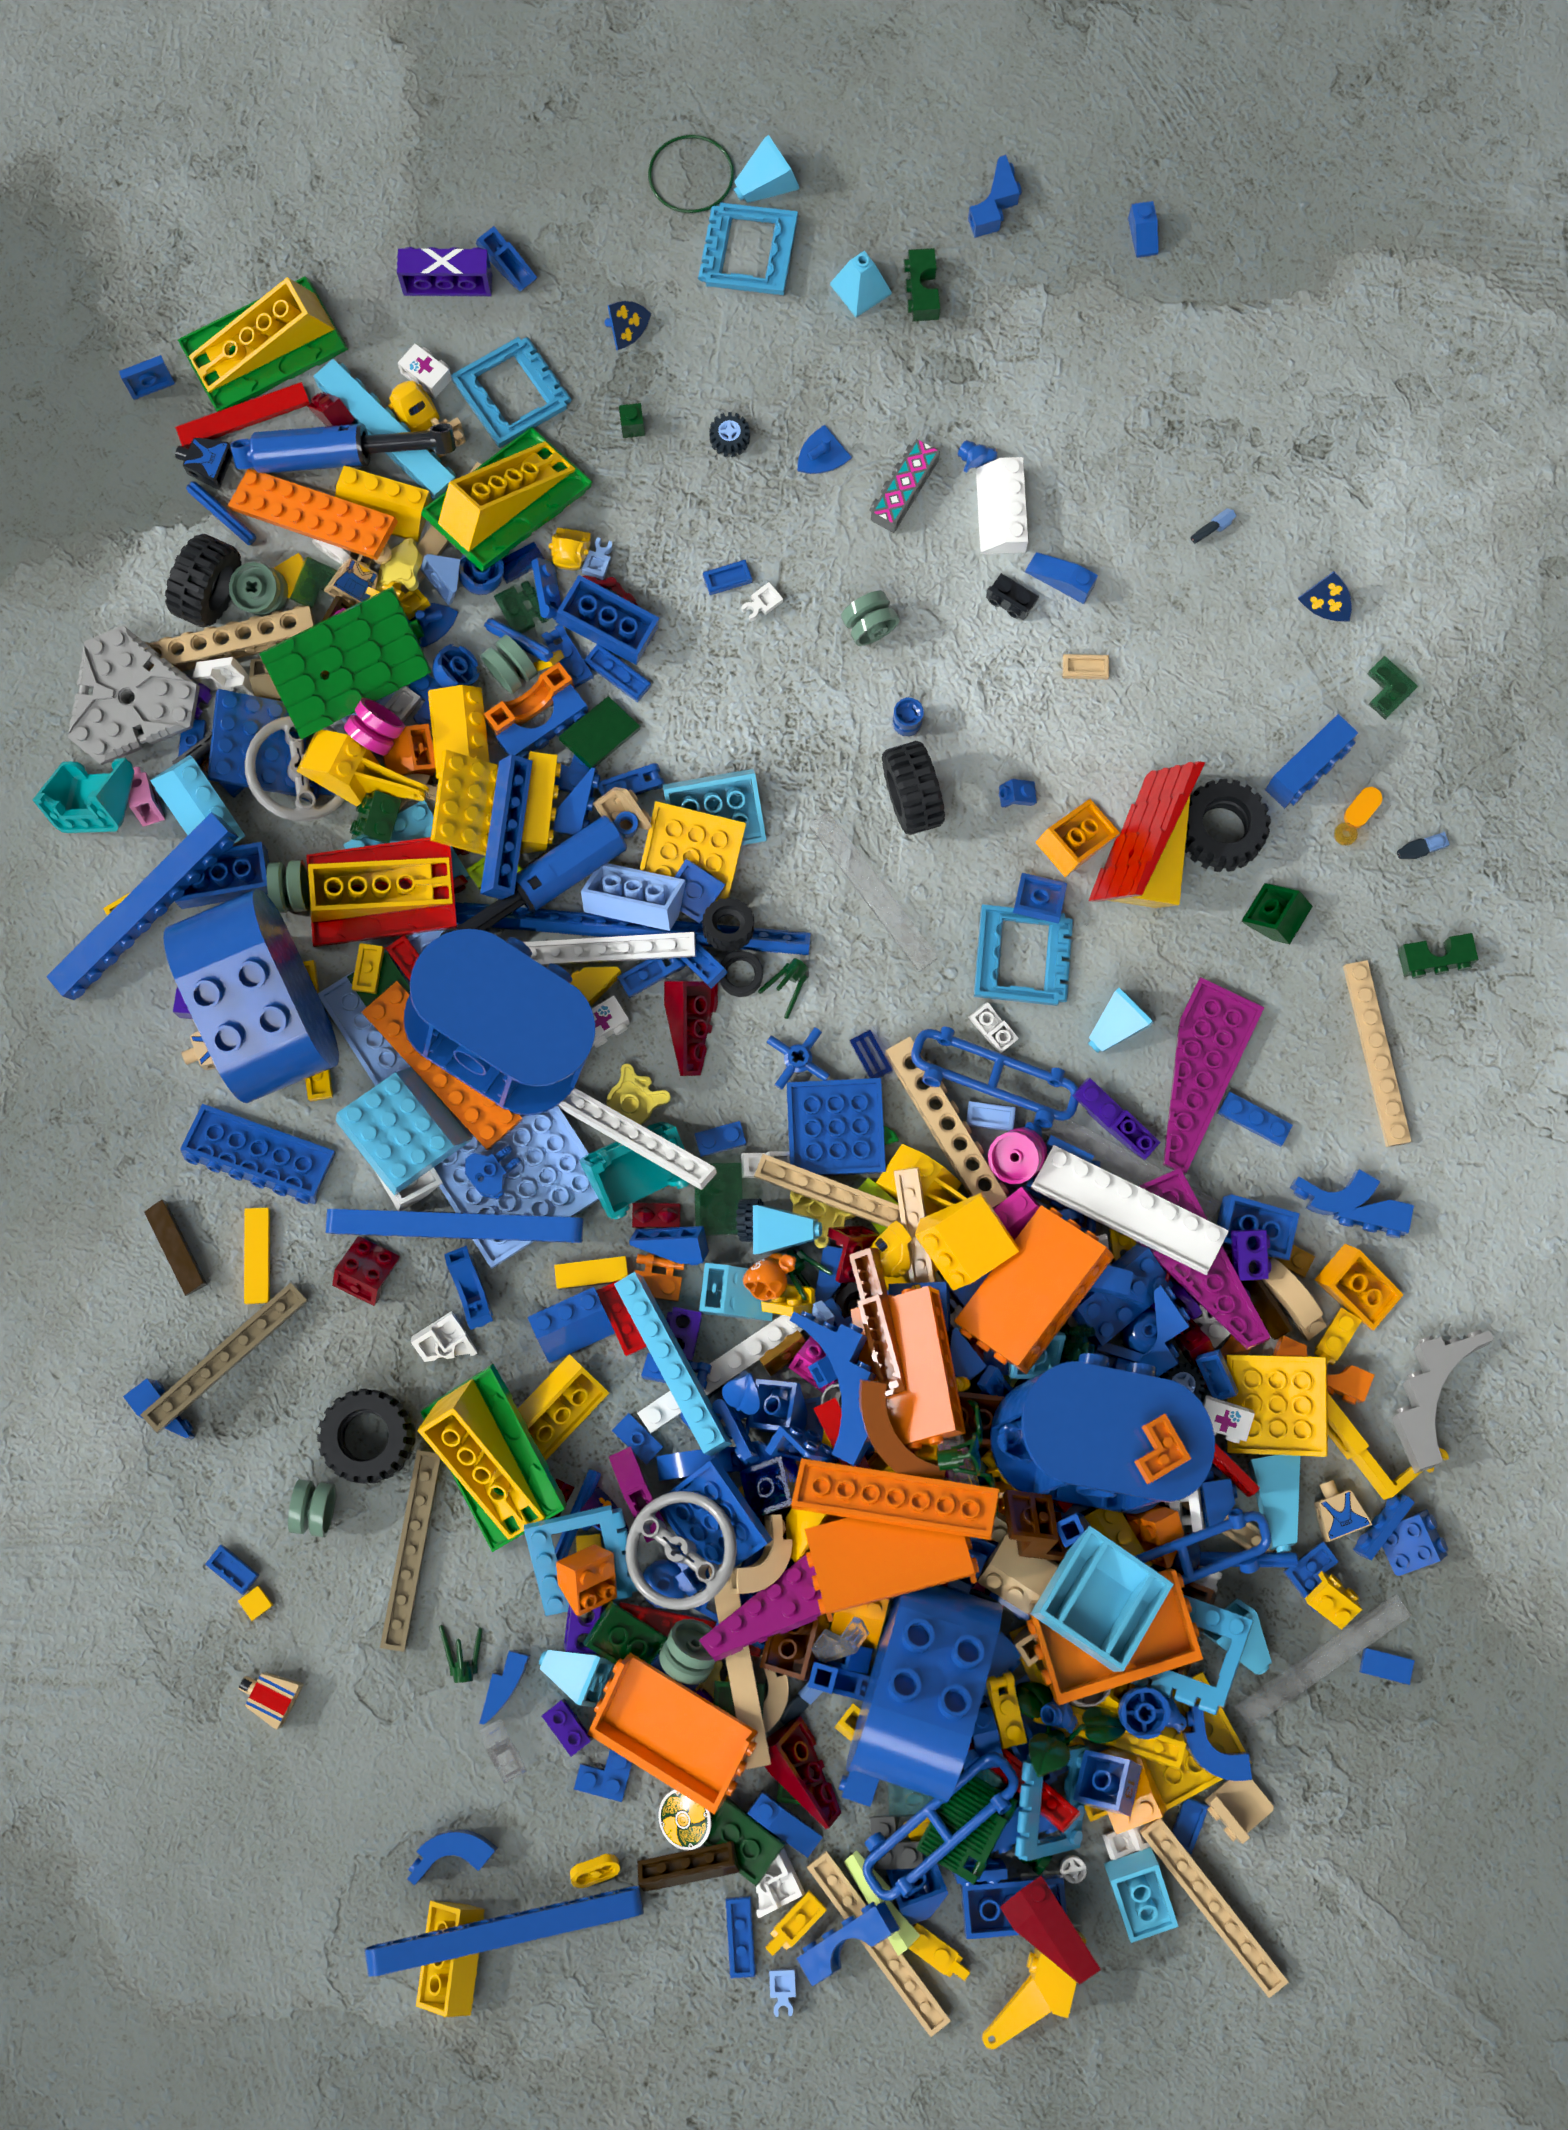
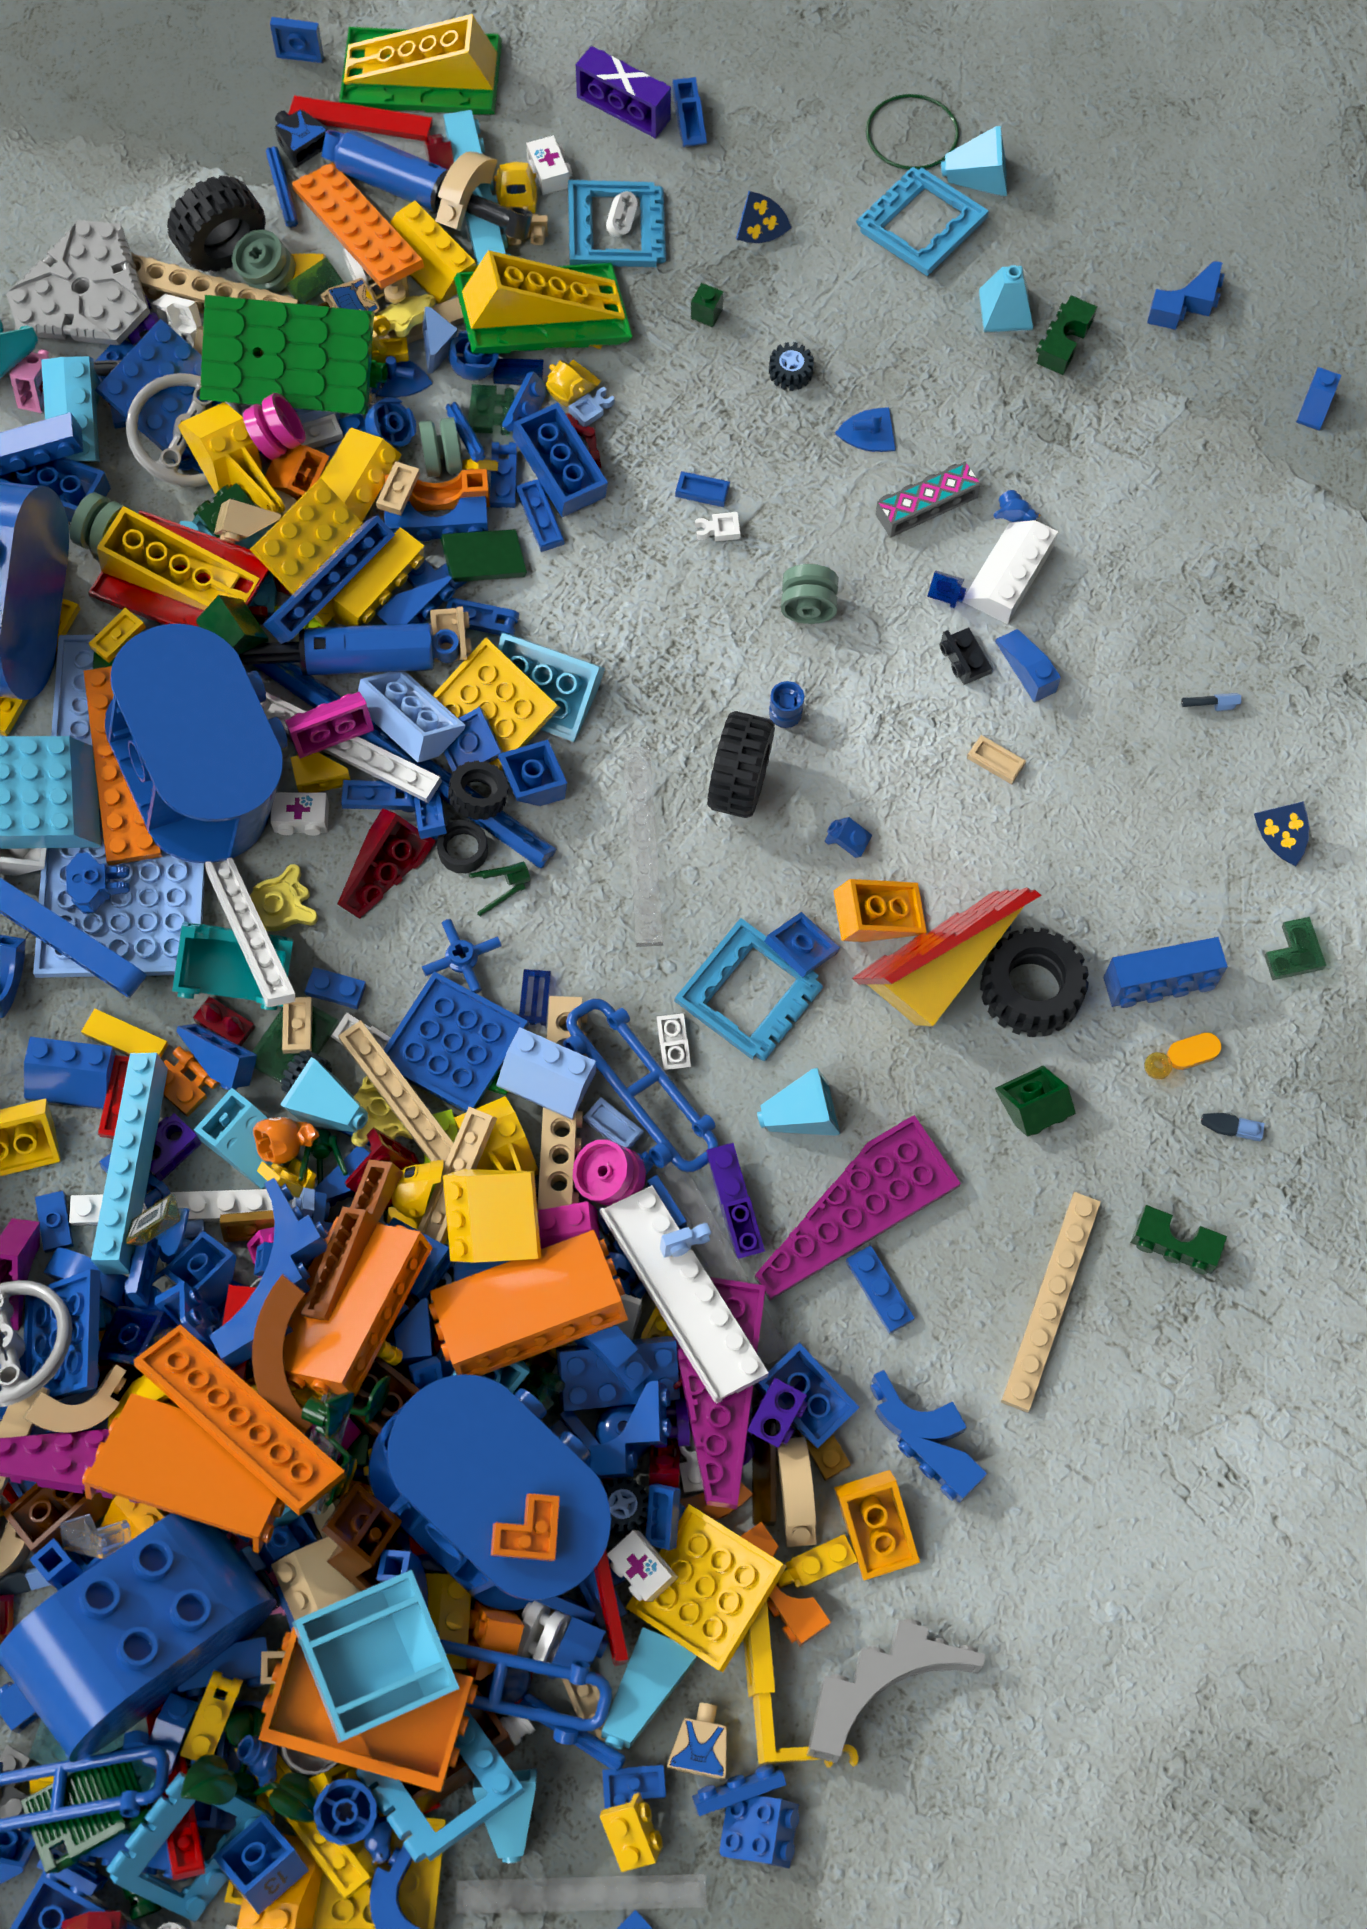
camera: 30 degrees right, 10 degrees down
(377, 432) = (459, 183): none -> tan arch
(406, 821) = (242, 520): none -> tan slope
(456, 909) = (233, 622): none -> dark green slope
(504, 720) = (398, 488): none -> tan plate
(512, 380) = (625, 215): none -> white beam
(583, 939) = (329, 724): none -> dark pink slope
(721, 1189) = (297, 1026): none -> tan plate
(729, 1397) = (153, 1221): none -> slope
(760, 885) = (534, 774): none -> blue slope
(926, 1110) = (546, 1073): none -> light blue slope
(966, 551) = (947, 588): none -> clear blue bracket
(1107, 1176) = (680, 1241): none -> light blue plate

